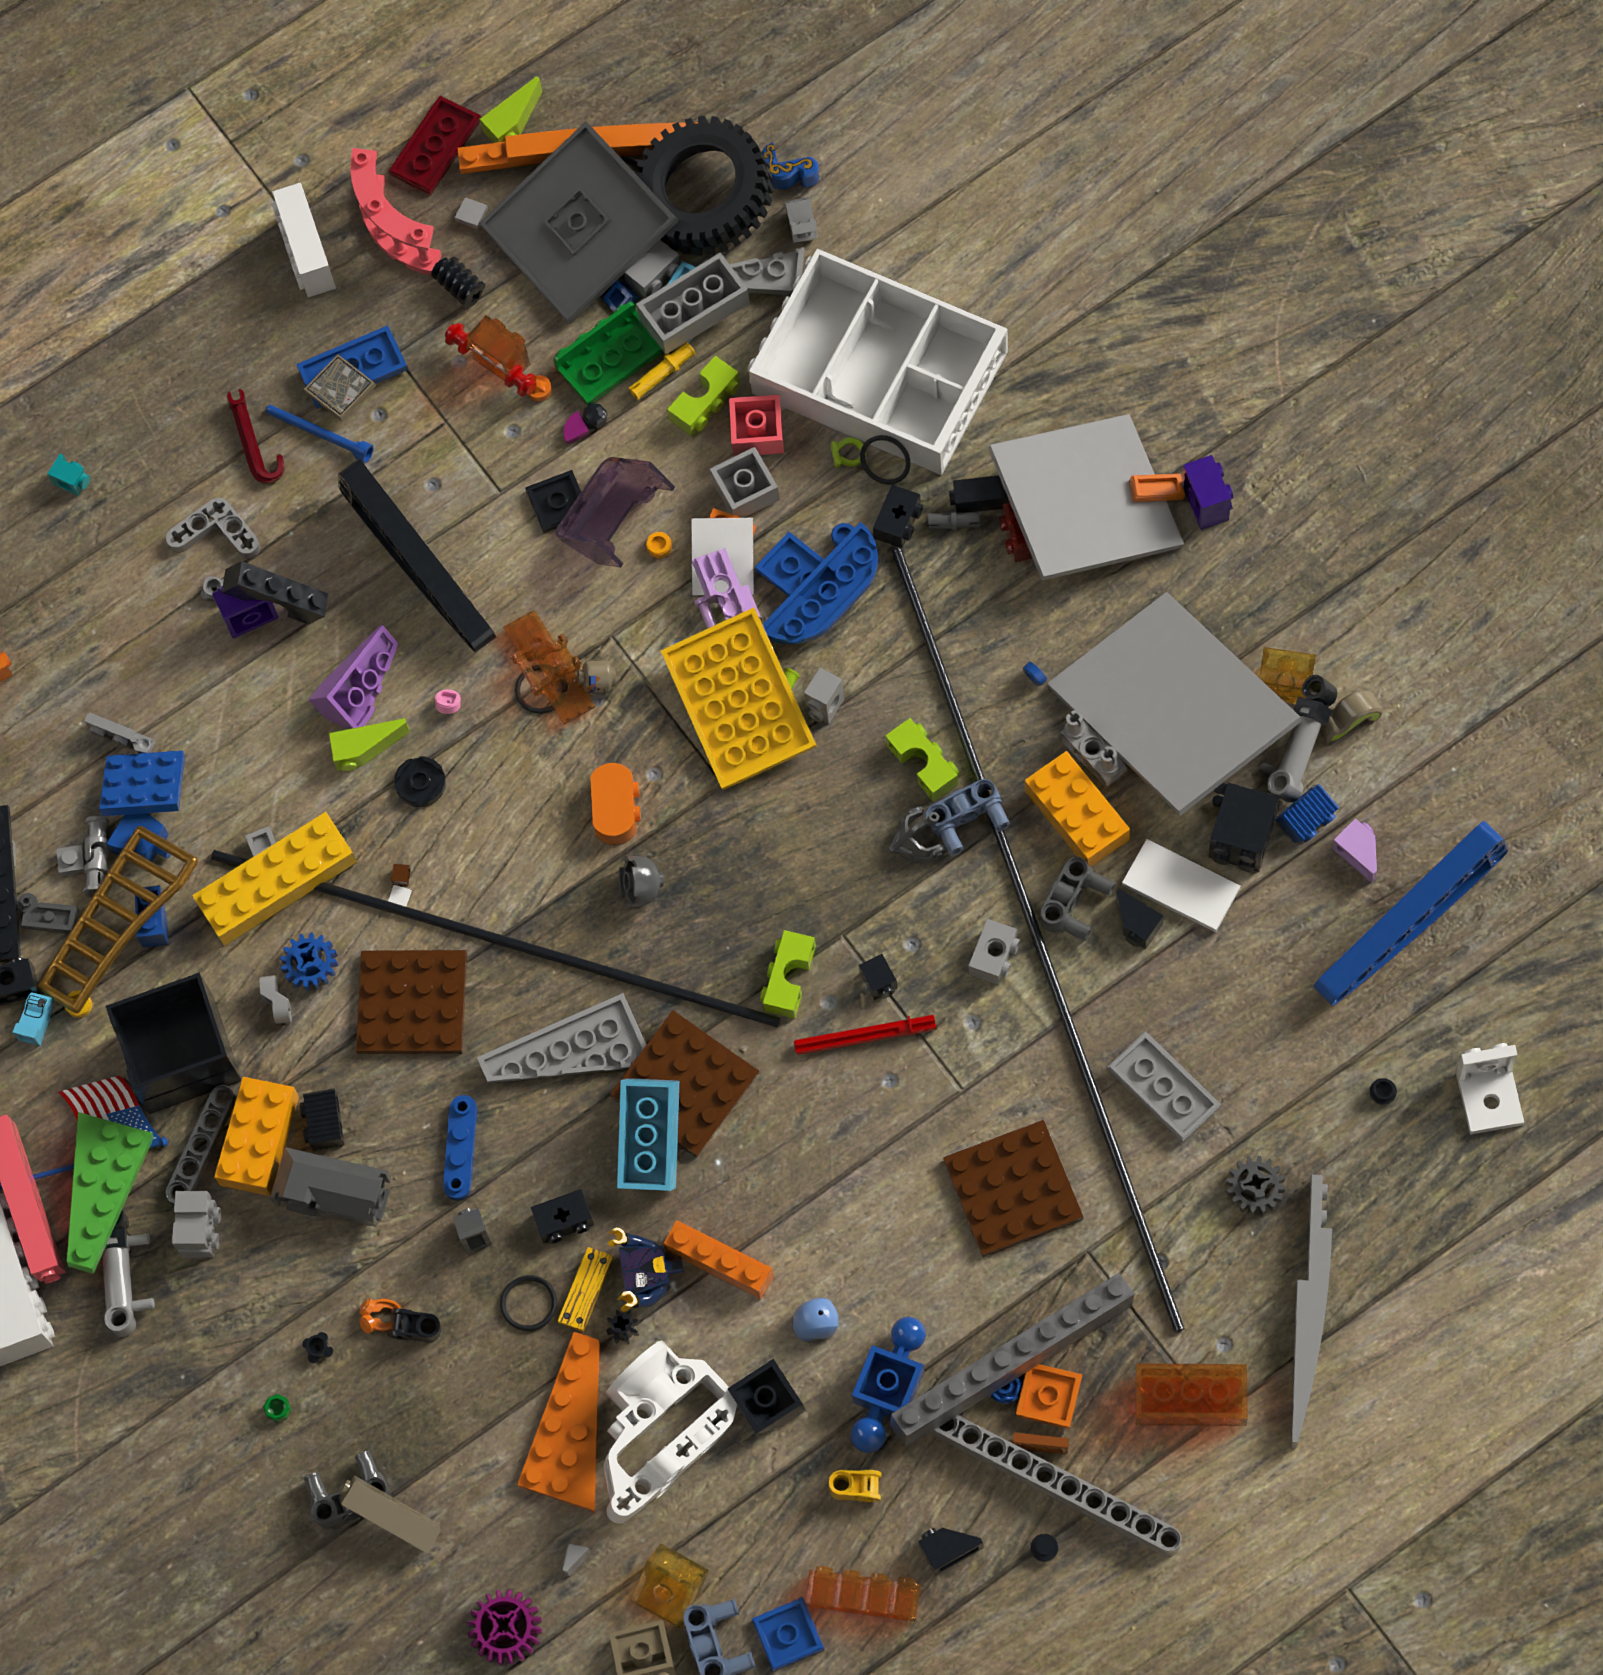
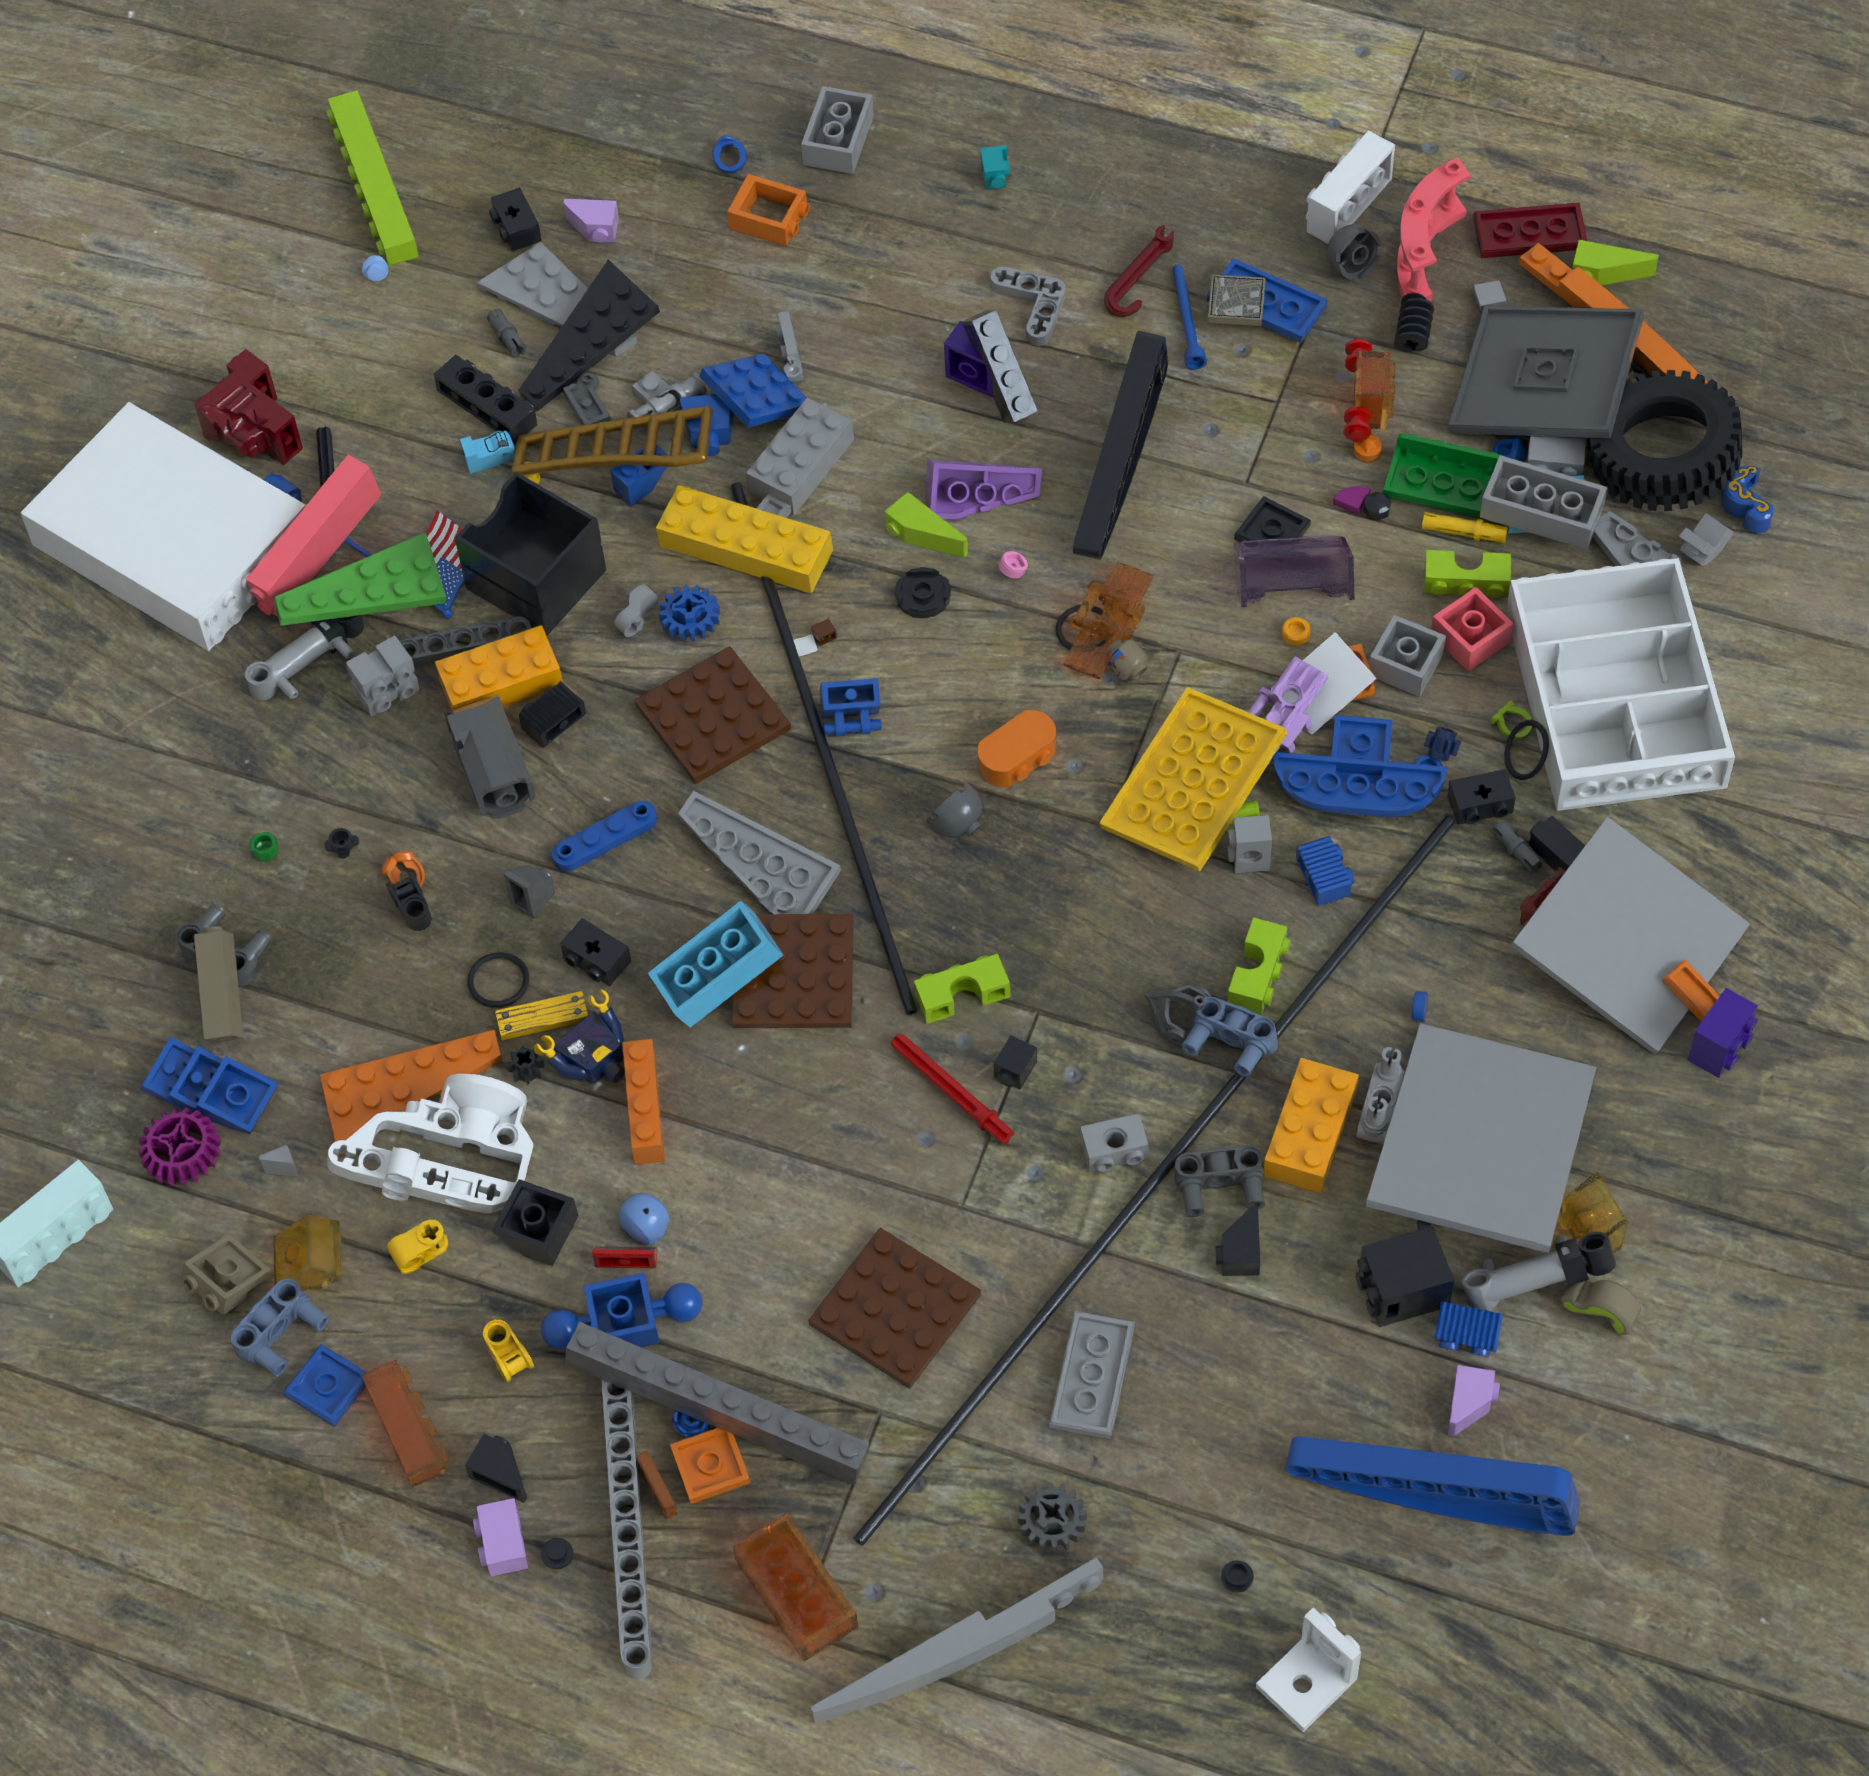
camera: 50 degrees right, 10 degrees down
(228, 789) = (801, 455): none -> light grey brick
(359, 277) = (1353, 251): none -> dark grey cylinder
(465, 1574) = (212, 1085): none -> blue slope
(482, 892) = (850, 699): none -> blue brick
(721, 1502) = (415, 1246): none -> yellow piece
(834, 511) = (1442, 743): none -> dark blue gear
(835, 1352) = (625, 1257): none -> red slope
(877, 661) = (1324, 870): none -> blue brick
(1005, 1579) = (501, 1537): none -> lavender brick
(1181, 885) = (1309, 1265): white tile -> none

